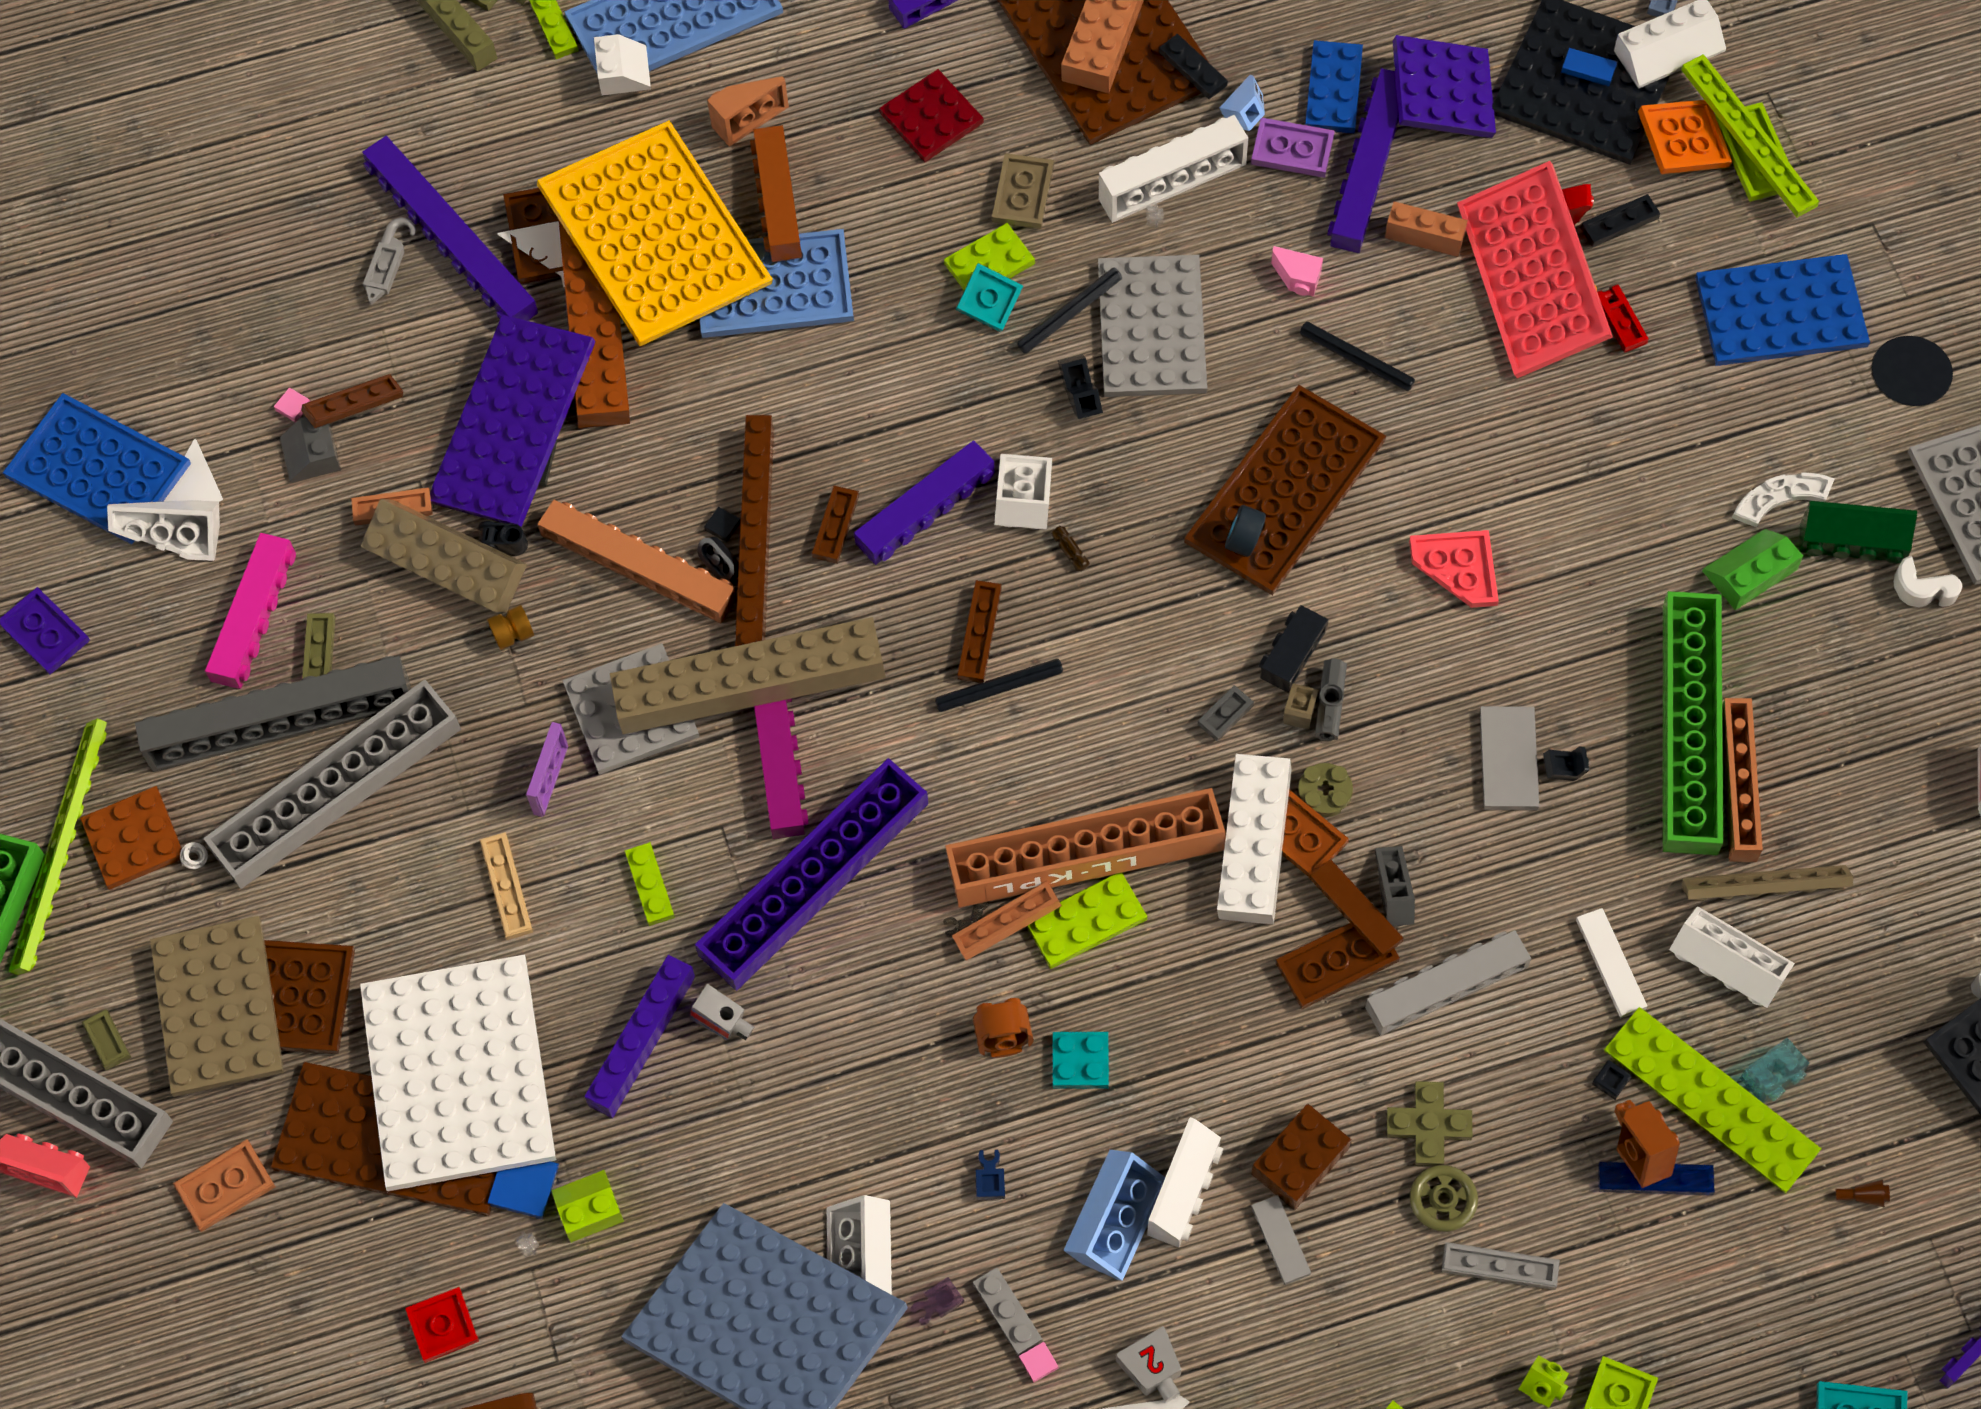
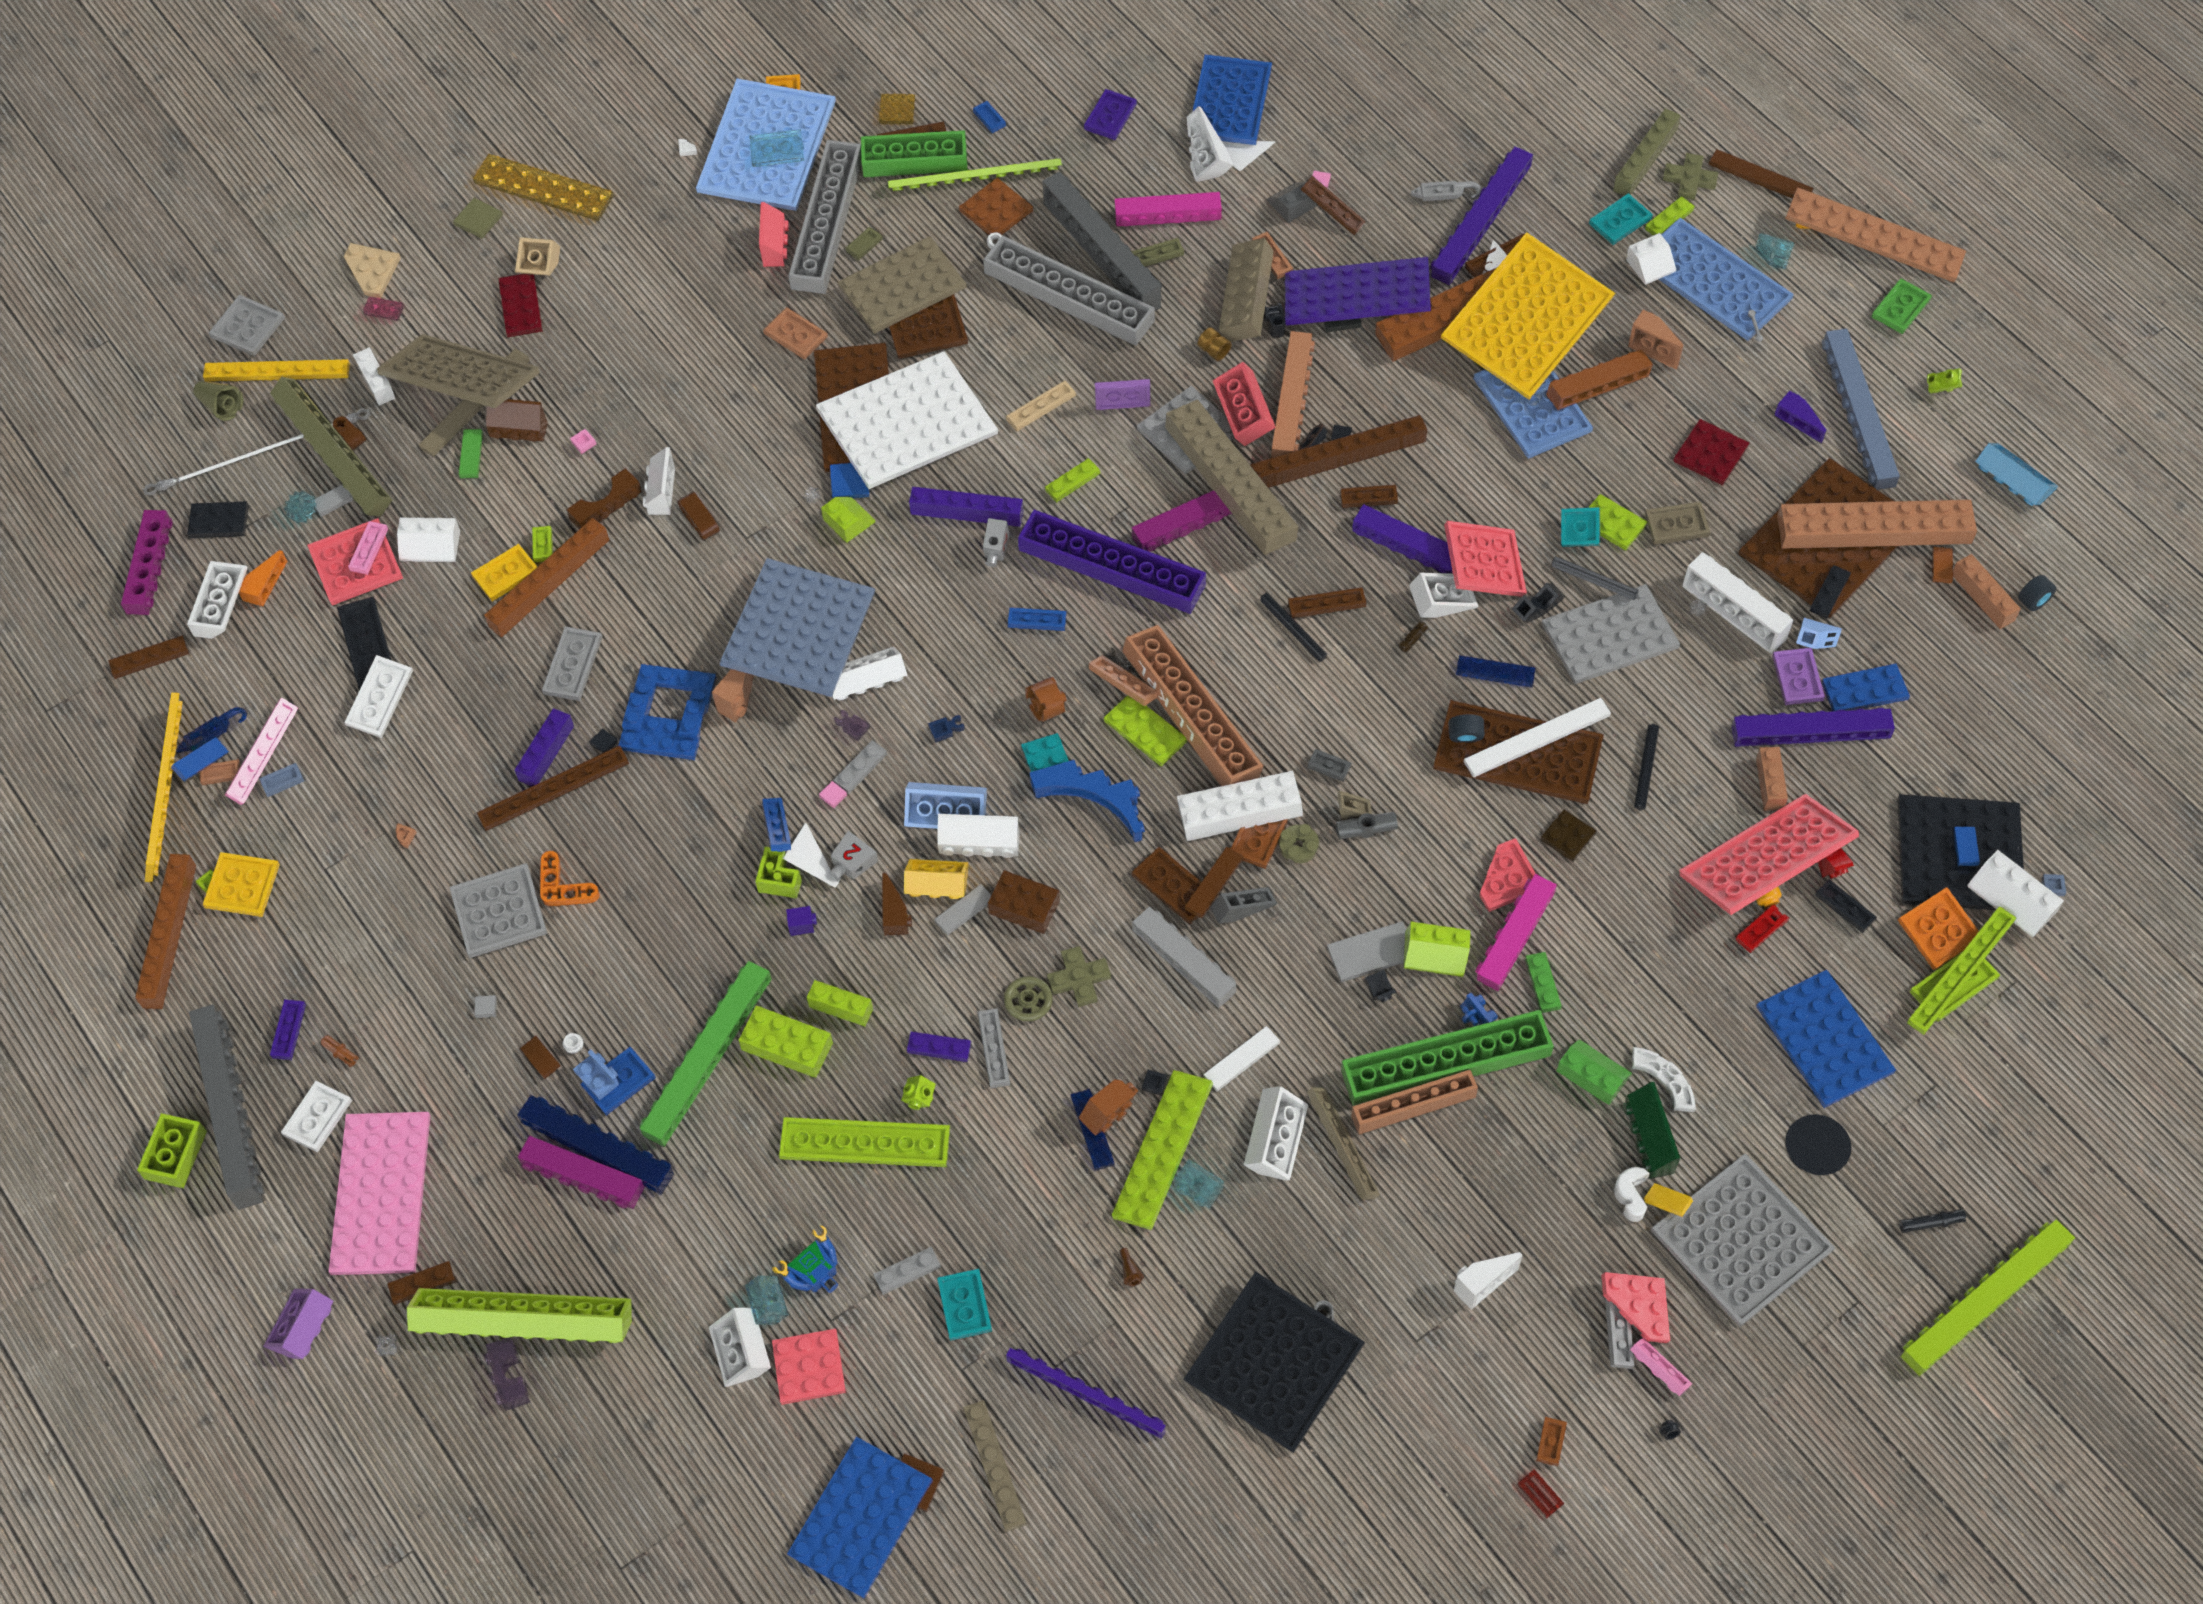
camera: 70 degrees right, 5 degrees down
(442, 1324) = (746, 469): red plate -> none
(532, 78) = (1620, 219): none -> teal plate
(632, 621) = (1243, 404): none -> coral brick
(861, 1001) = (1037, 619): none -> blue plate
(996, 421) = (1485, 559): none -> coral plate
(1156, 473) = (1495, 671): none -> clear blue plate
(1157, 1008) = (1095, 786): none -> blue arch
(1223, 1260) = (935, 878): none -> yellow slope
(1254, 1331) = (894, 910): none -> reddish brown slope
(1279, 459) = (1537, 737): none -> white tile
(1293, 648) = (1396, 791): black brick -> none
(1297, 270) = (1696, 709): bright pink slope -> none
(1421, 477) = (1568, 835): none -> dark brown plate
(1443, 86) = (1898, 755): dark purple plate -> none
(1476, 1336) = (939, 1046): none -> dark purple plate
(1537, 680) = (1436, 949): none -> lime slope
(1545, 581) = (1516, 932): none -> dark pink brick
(1614, 580) = (1543, 982): none -> bright green plate
(1636, 668) = (1474, 1011): none -> blue hips
(1946, 549) = (1668, 1199): none -> yellow tile

